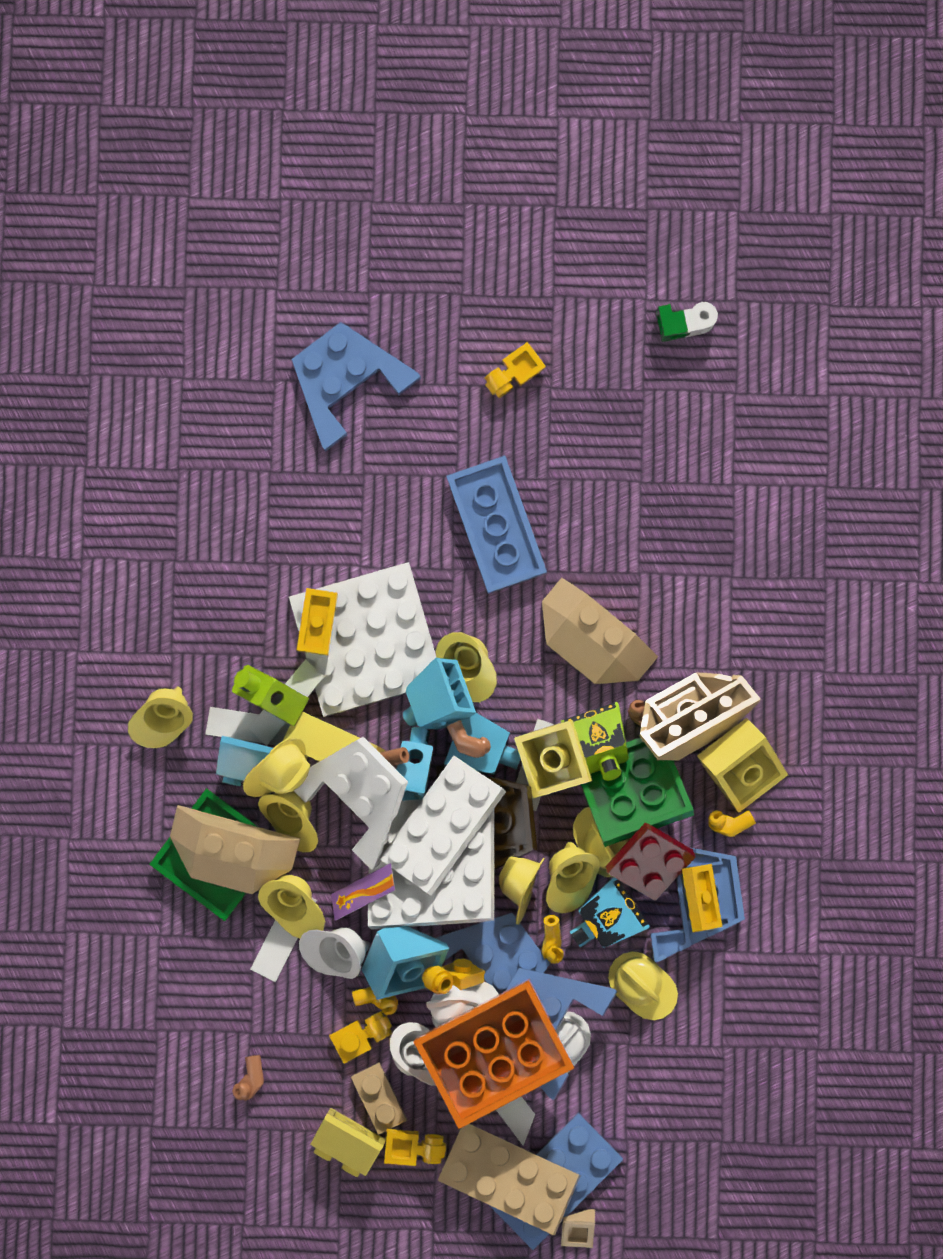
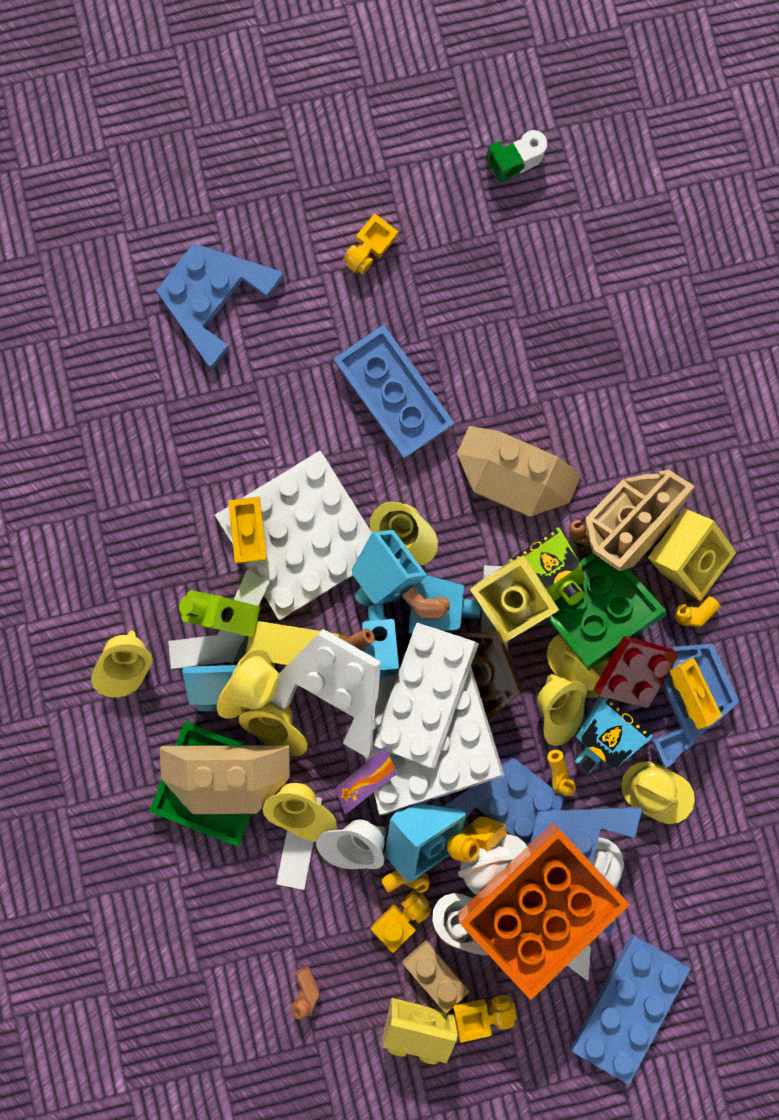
camera: 20 degrees left, 0 degrees up
(509, 1178) = (590, 1024): tan plate -> none
(518, 881) = (513, 724): light yellow piece -> none
(578, 1229) = (667, 1049): tan slope -> none

